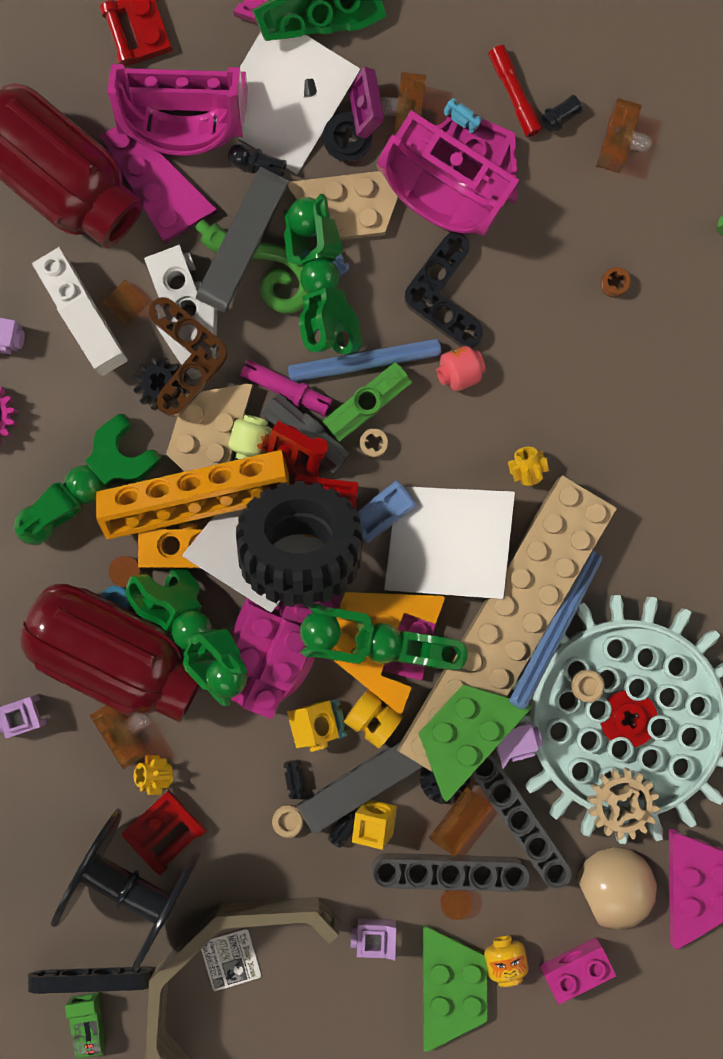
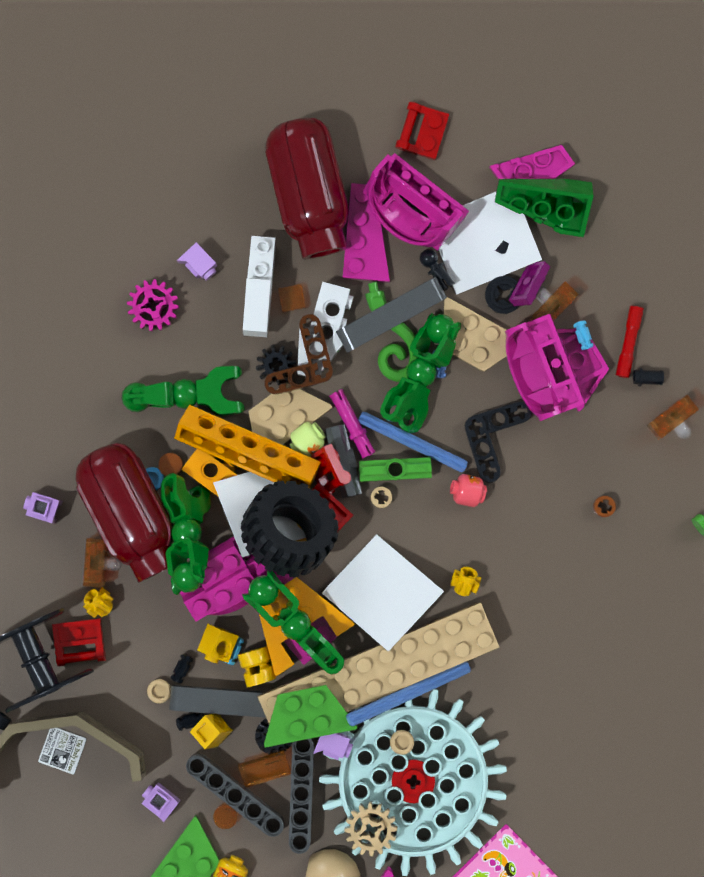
camera: 40 degrees right, 0 degrees up
(384, 510) = (357, 544): medium blue plate -> none

